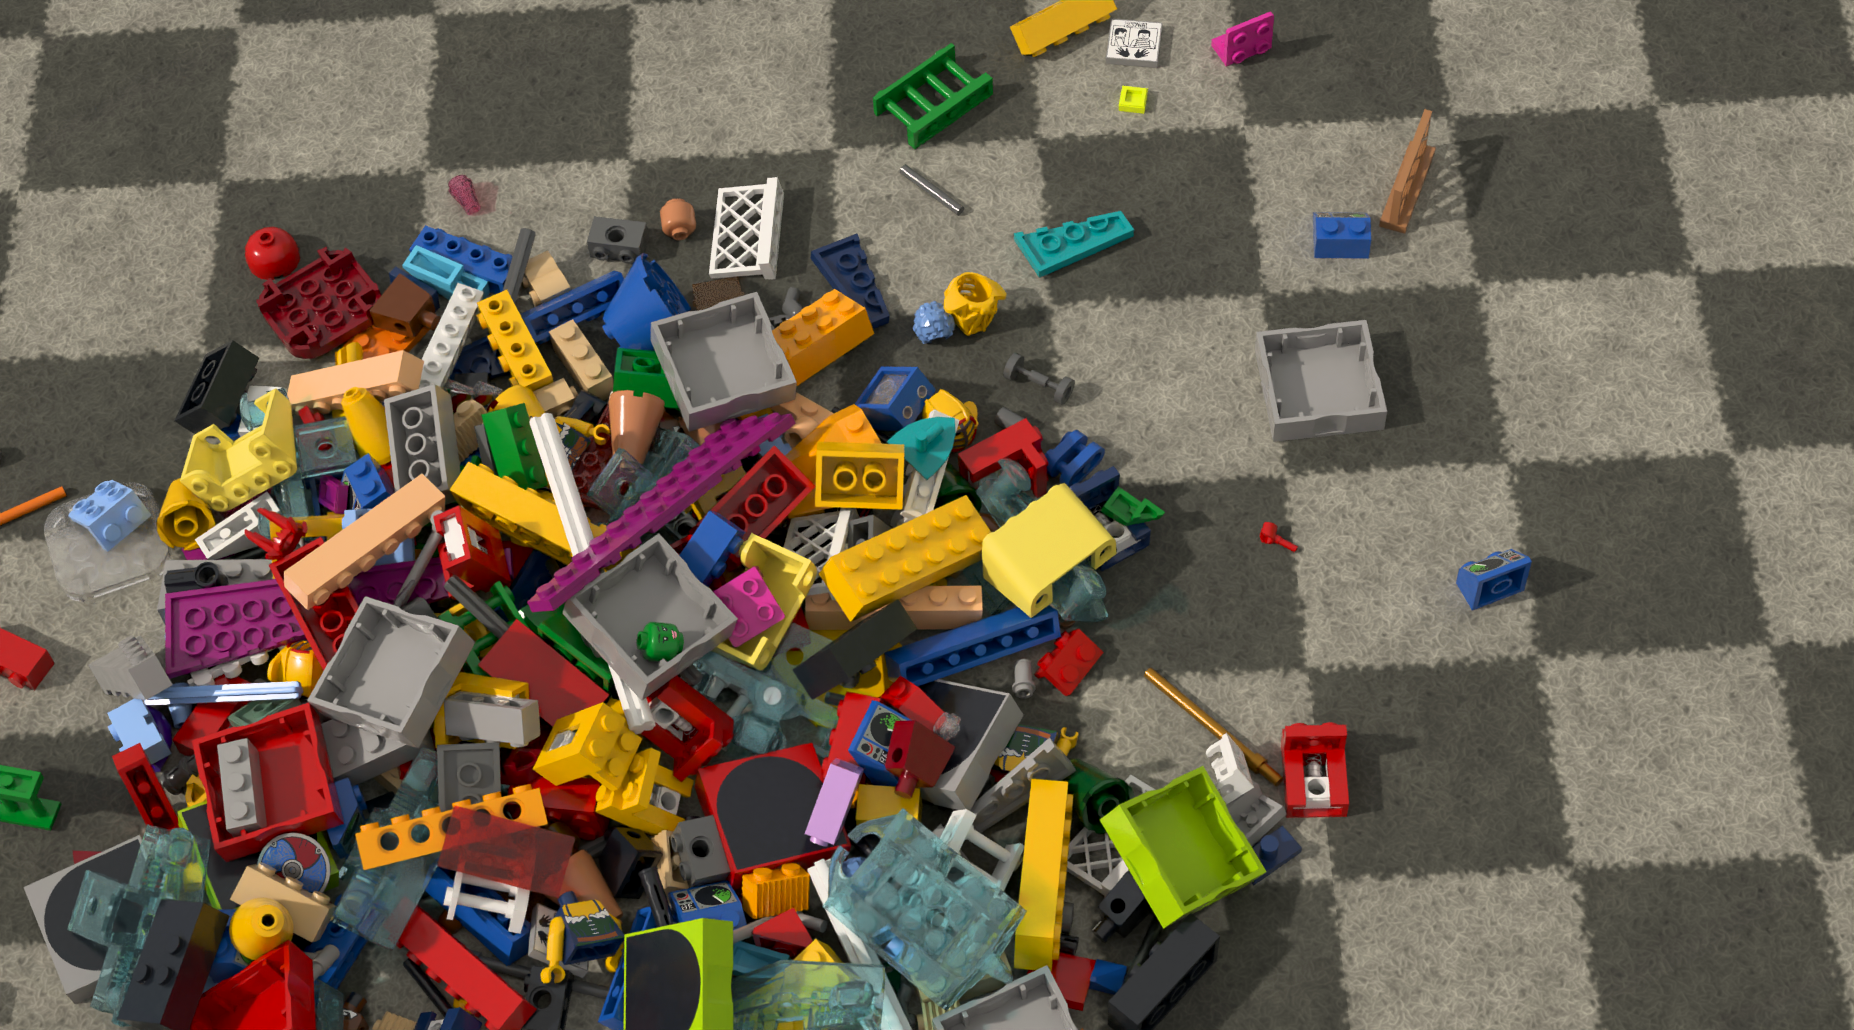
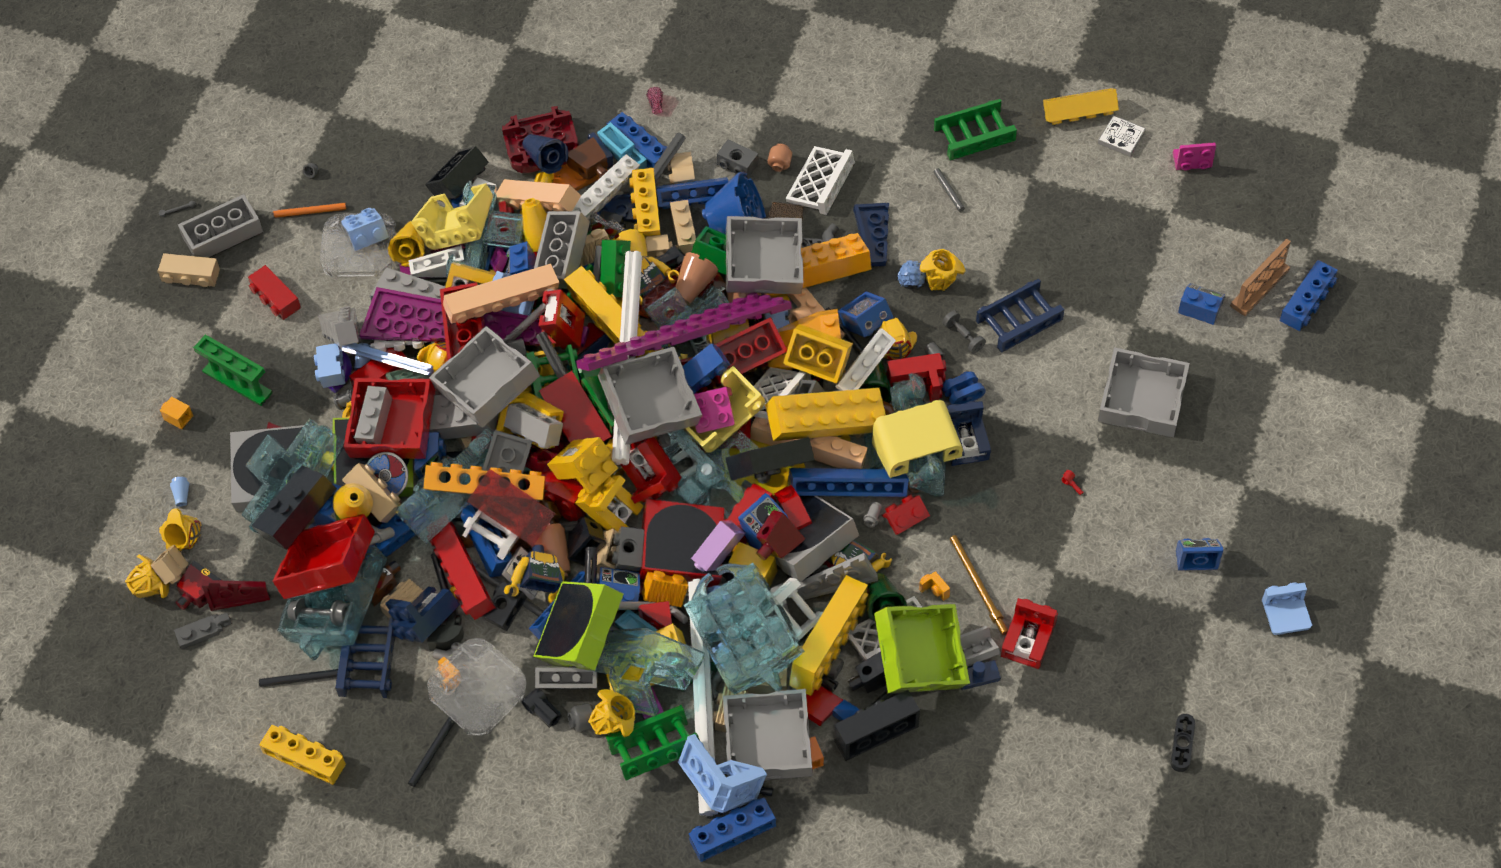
camera: 20 degrees right, 0 degrees up
(145, 788) = (321, 398): red brick -> none
(194, 578) = (397, 283): black piece -> none
(271, 253) = (524, 99): red cylinder -> none
(286, 540) = (448, 279): red piece -> none
(339, 316) = (546, 152): none -> dark blue cone
(660, 641) = (649, 412): green head -> none
(927, 443) = (868, 347): teal shield -> none
(947, 726) = (806, 525): clear plate -> none
(1061, 246) = (1014, 252): teal wing -> none
(1117, 352) = (1022, 331): none -> dark blue fence
(1130, 511) = (982, 432): green slope -> none
(1133, 99) = (1104, 172): neon yellow tile -> none
(1158, 747) = (937, 585): none -> light orange bracket
(1230, 769) = (977, 613): white hinge -> none
(1477, 178) = (1308, 295): none -> blue brick
(1592, 837) = (1188, 735): none -> black beam
(1641, 612) = (1286, 608): none -> light blue bracket

